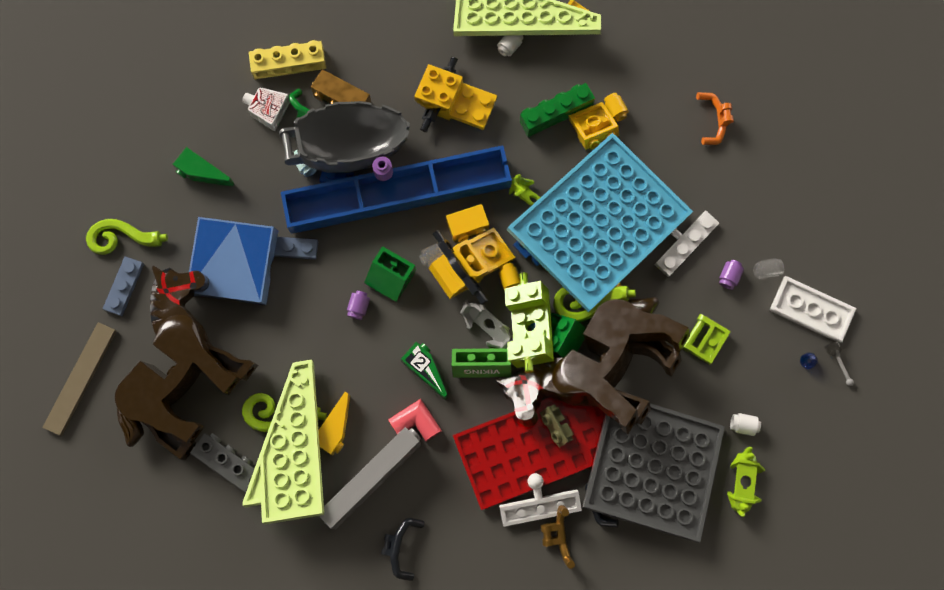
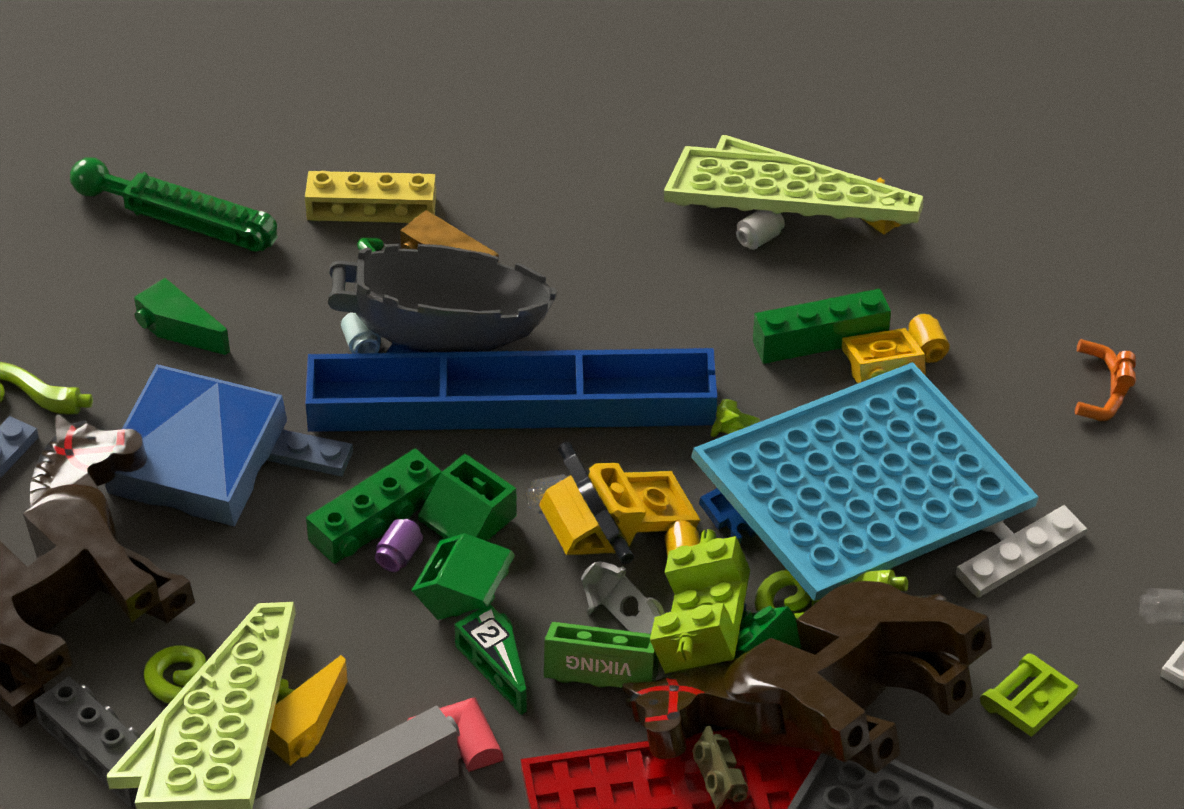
camera: 10 degrees right, 30 degrees down
(179, 87) = (178, 205): none -> green gear
(267, 106) = (315, 249): white torso -> none
(339, 282) = (372, 506): none -> green brick
(382, 168) = (494, 339): medium lavender brick -> none
(398, 325) = (462, 575): none -> green slope
(447, 96) = (631, 279): yellow piece -> none
(467, 223) = (632, 449): yellow brick -> none
(731, 274) = (1094, 604): medium lavender brick -> none

